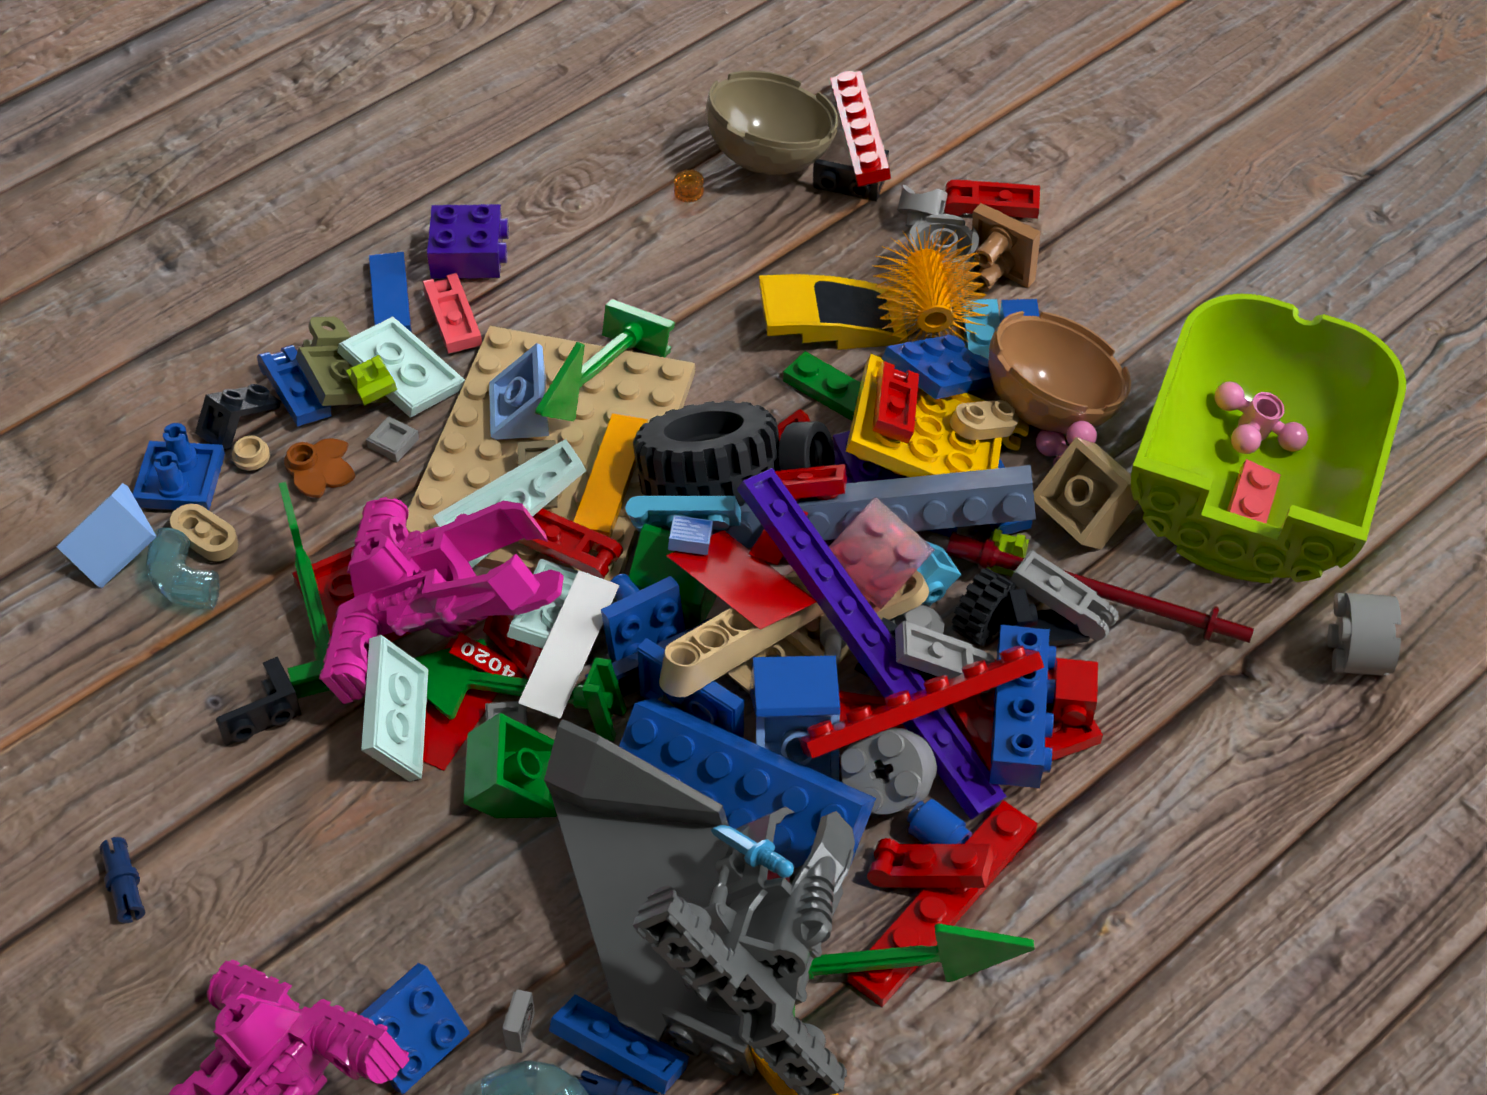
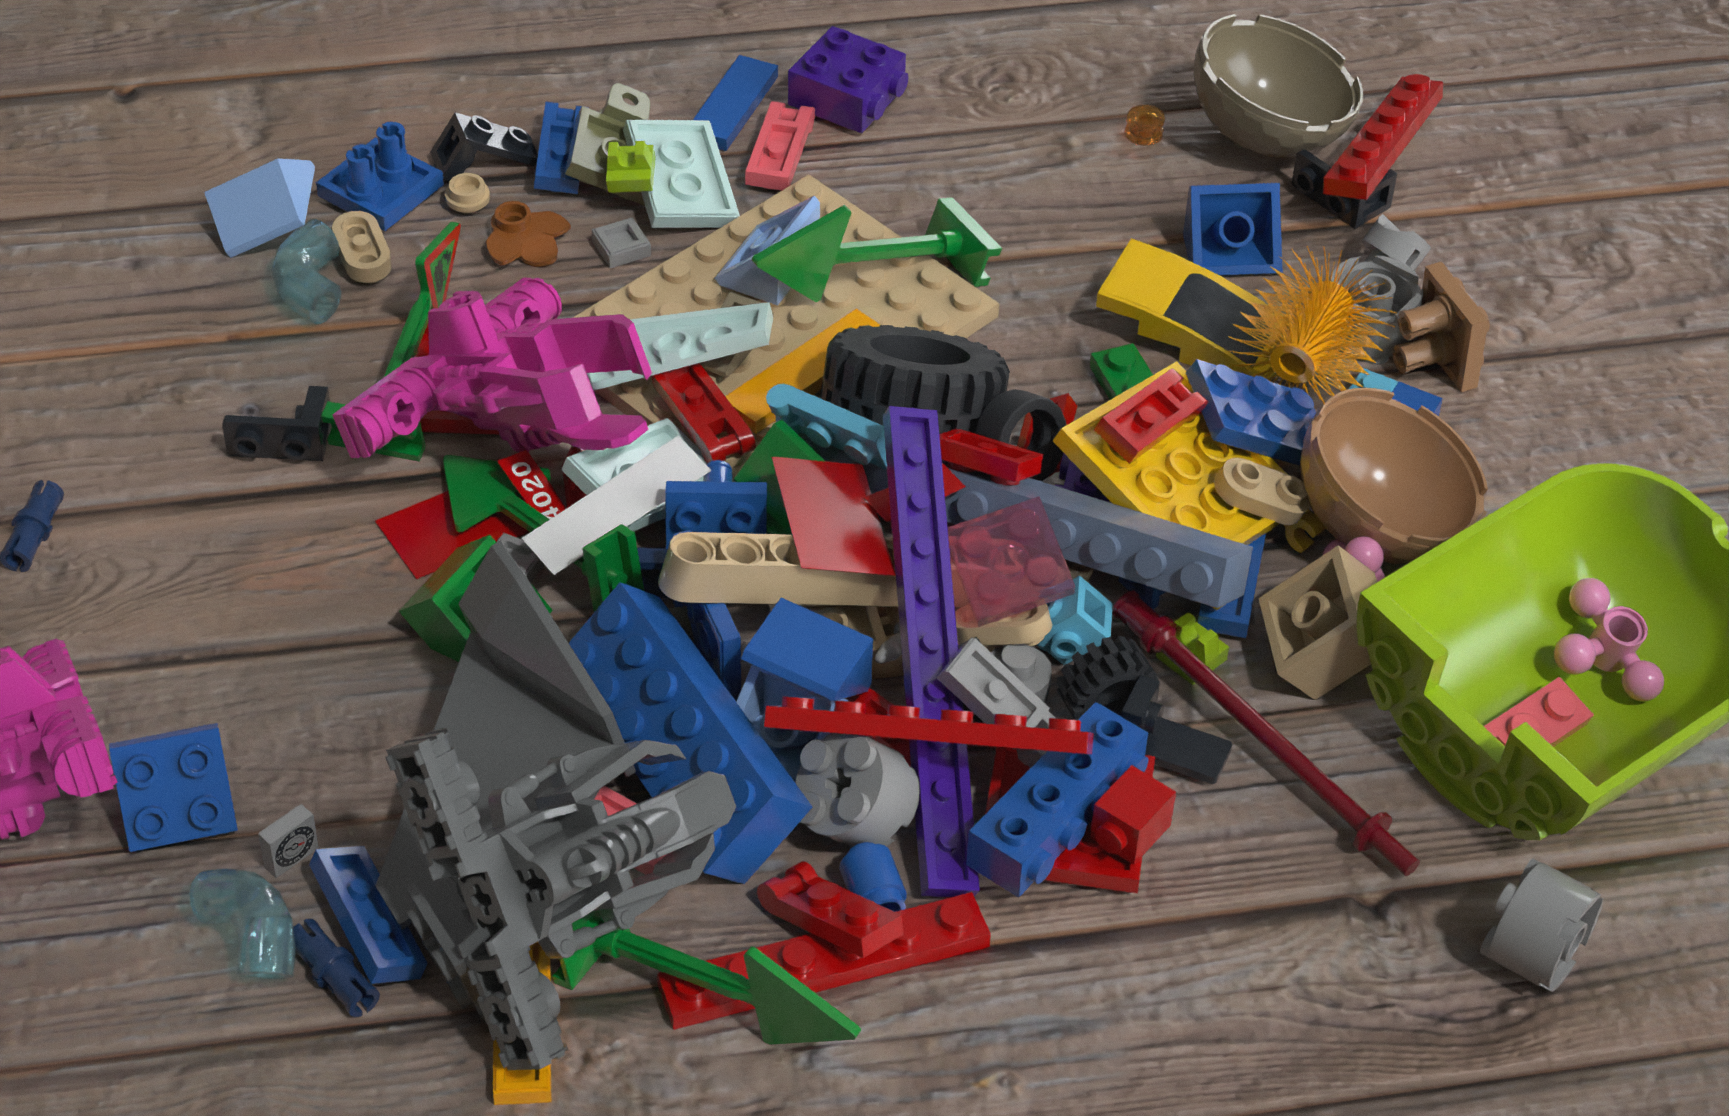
camera: 30 degrees right, 5 degrees down
(395, 709) = (397, 486): light aqua tile -> none
(690, 535) = (813, 448): medium blue tile -> none
(755, 852) = (591, 761): dark azure piece -> none
(811, 238) = (1234, 228): none -> blue slope
(1008, 198) = (1496, 279): red plate -> none
(1065, 595) = (1210, 715): light grey hinge -> none

